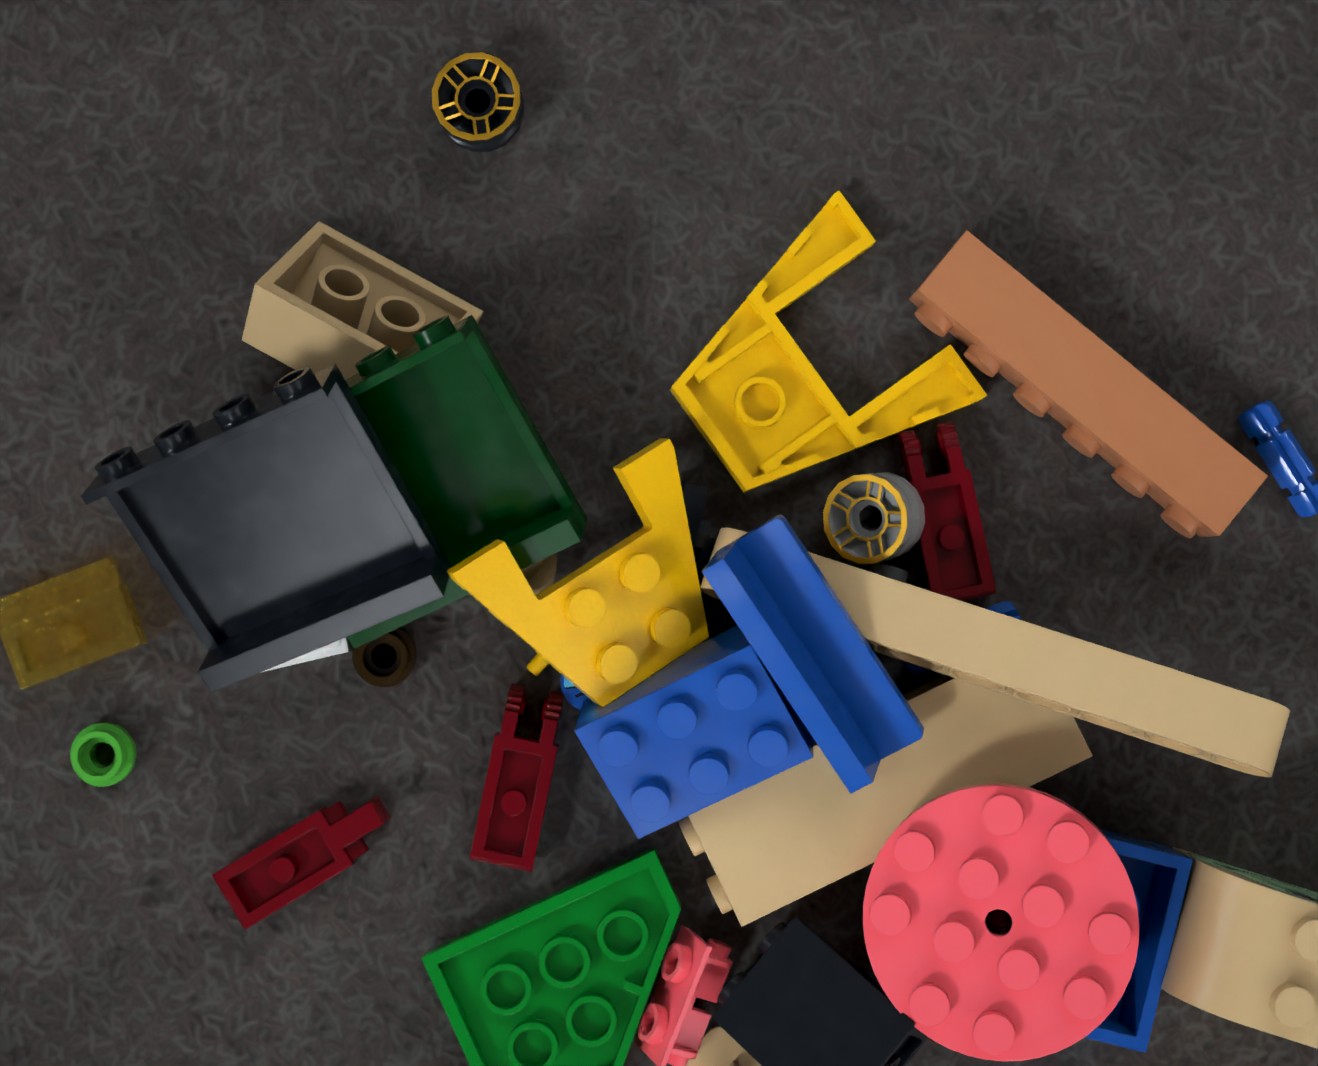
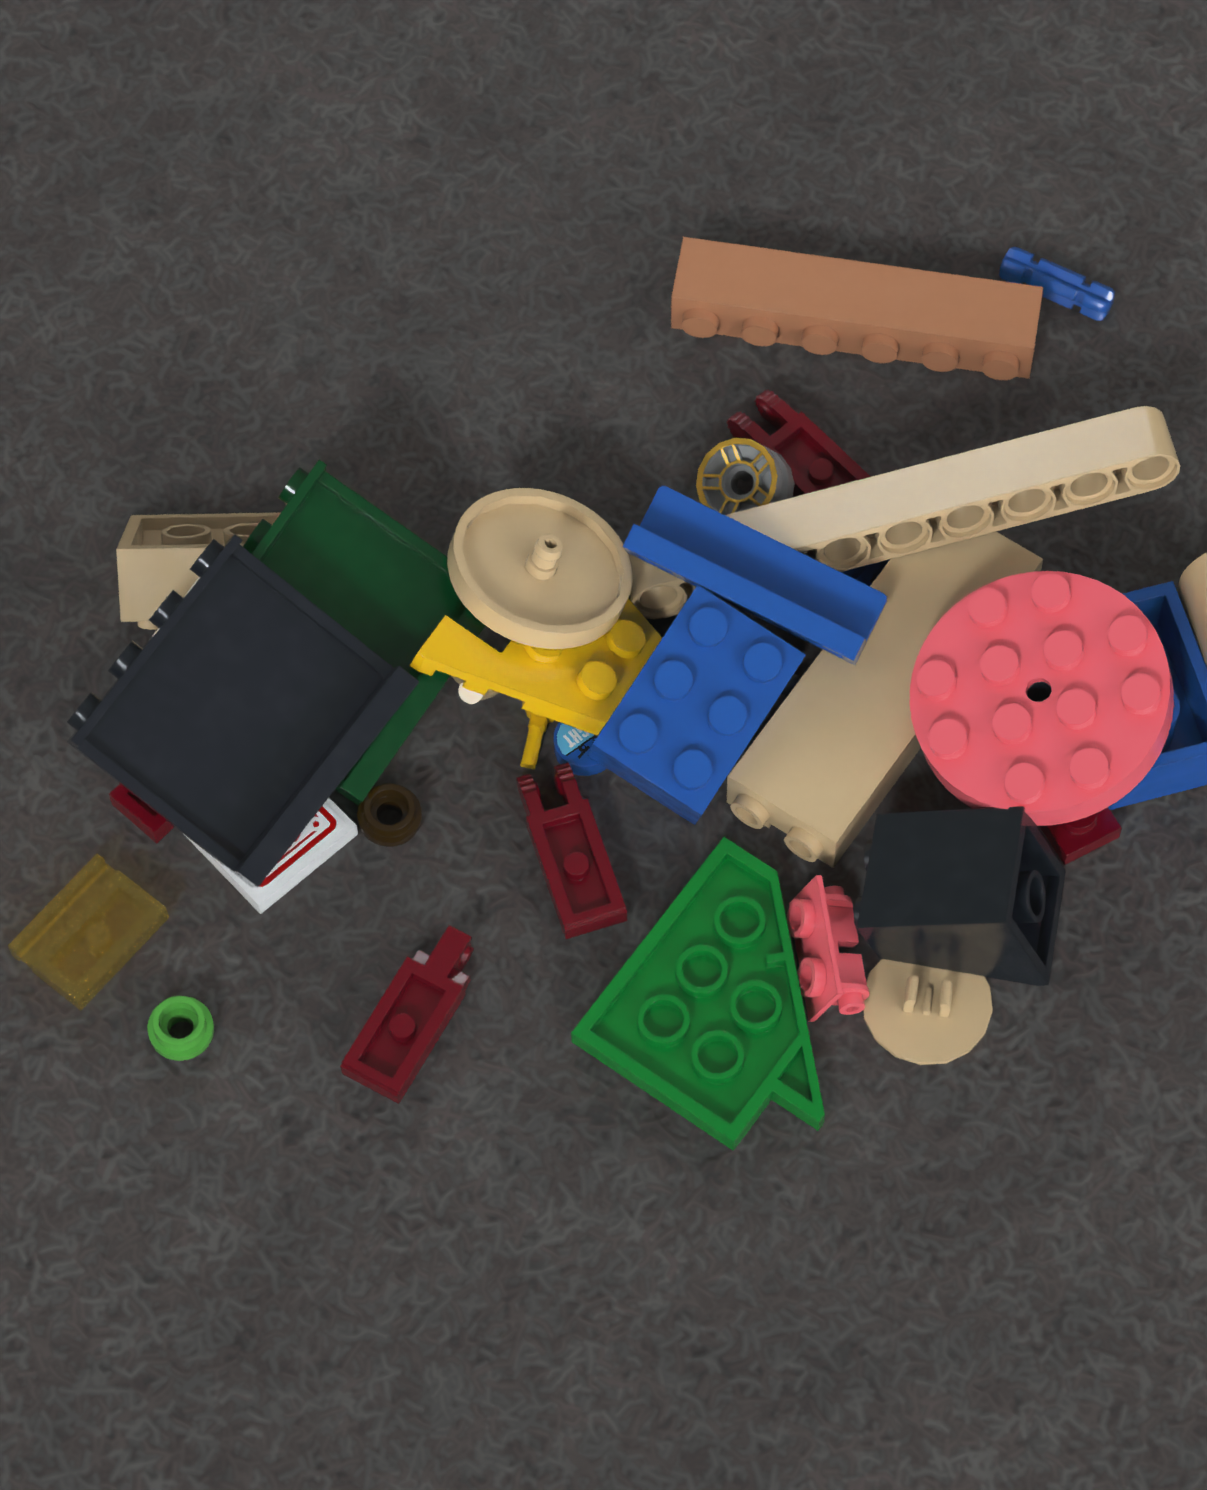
camera: 25 degrees left, 25 degrees down
(460, 83) = (213, 333): black wheel -> none
(621, 533) = (539, 568): none -> tan piece
(764, 399) = (605, 449): yellow wing -> none

